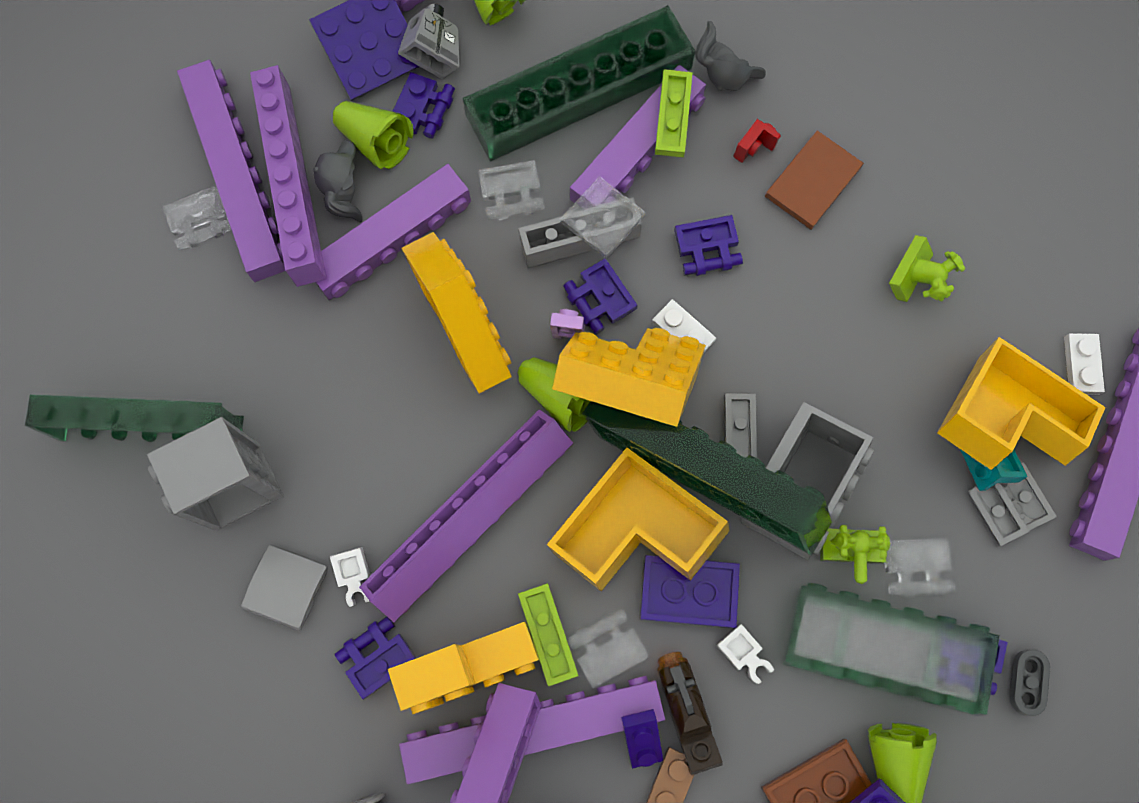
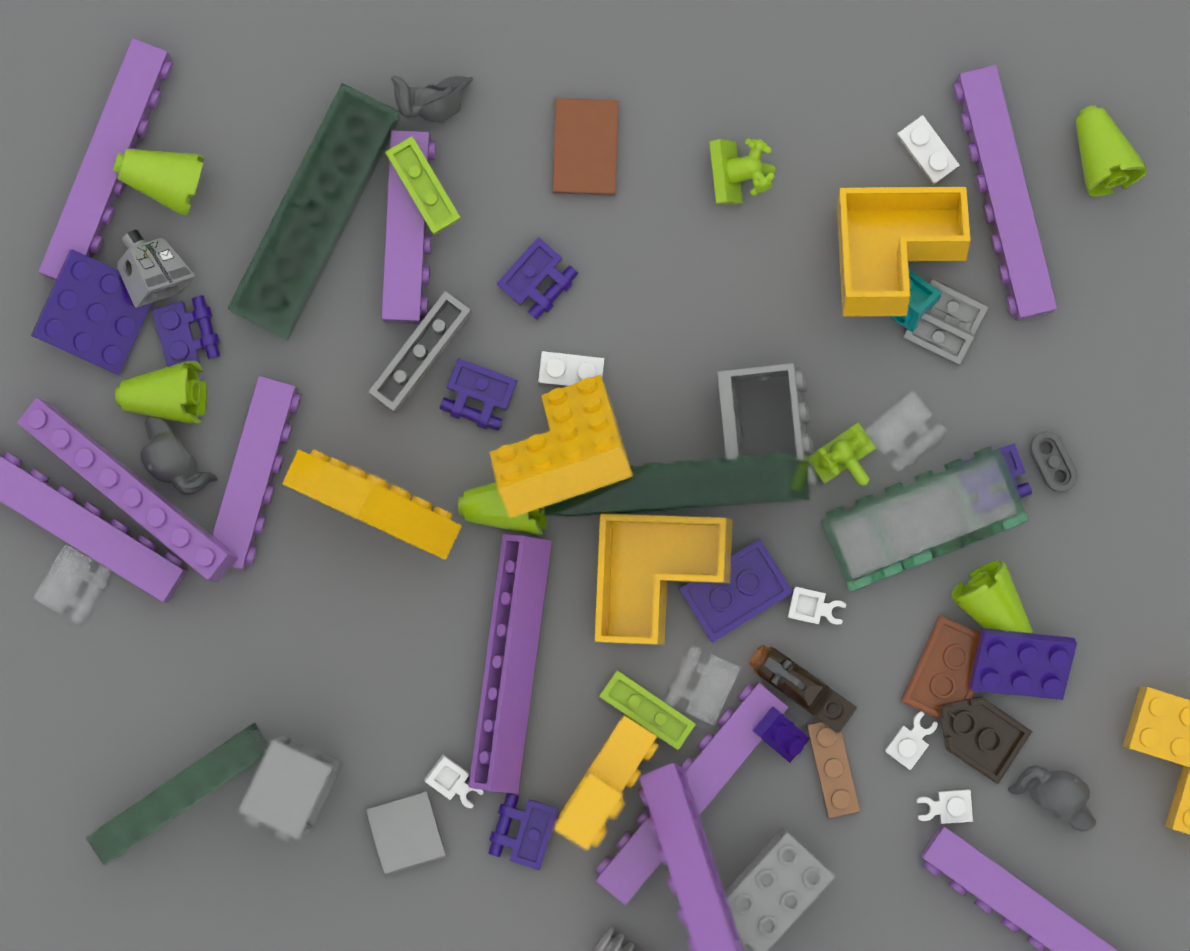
camera: 40 degrees left, 10 degrees up
(507, 182) = (321, 347): clear plate -> none
(566, 324) = (475, 447): lavender plate -> none
(602, 217) = (433, 330): clear tile -> none
(740, 423) = (683, 426): light grey plate -> none
(757, 135) = (506, 154): red bracket -> none

